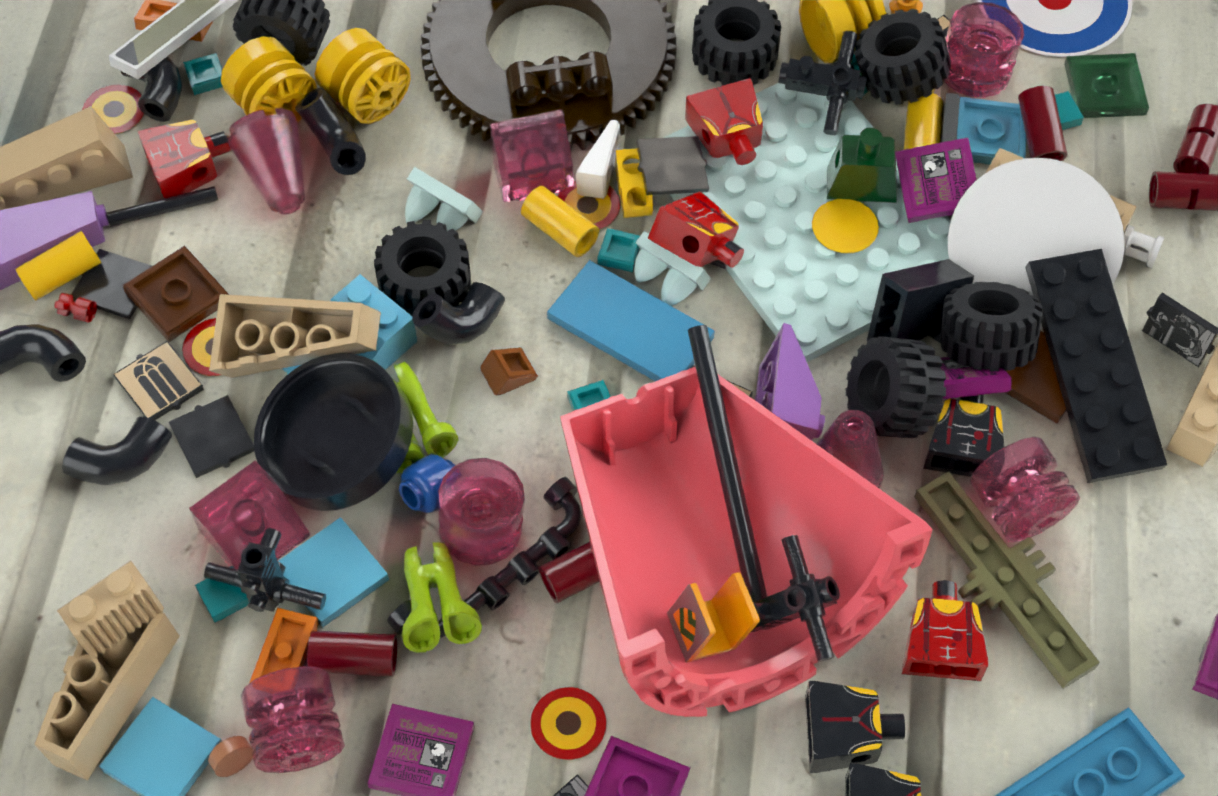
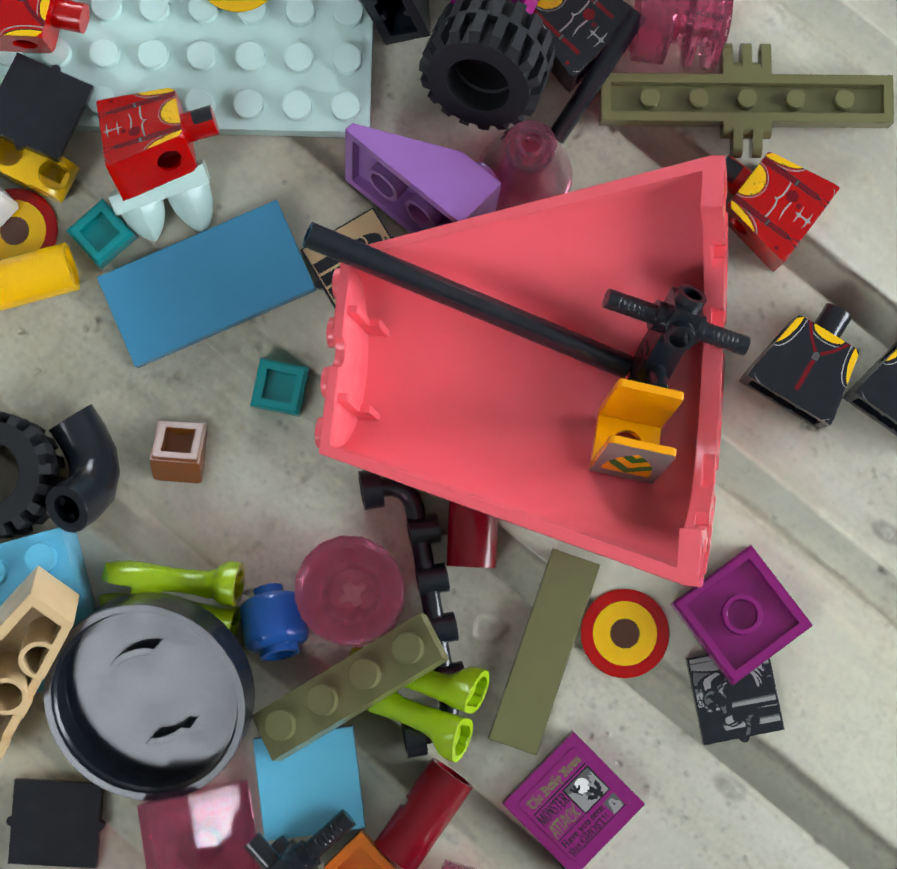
camera: 60 degrees left, 25 degrees up
(415, 546) = (350, 687): none -> olive plate
(520, 671) = (544, 651): none -> olive tile
(934, 468) = (597, 75): none -> black bar

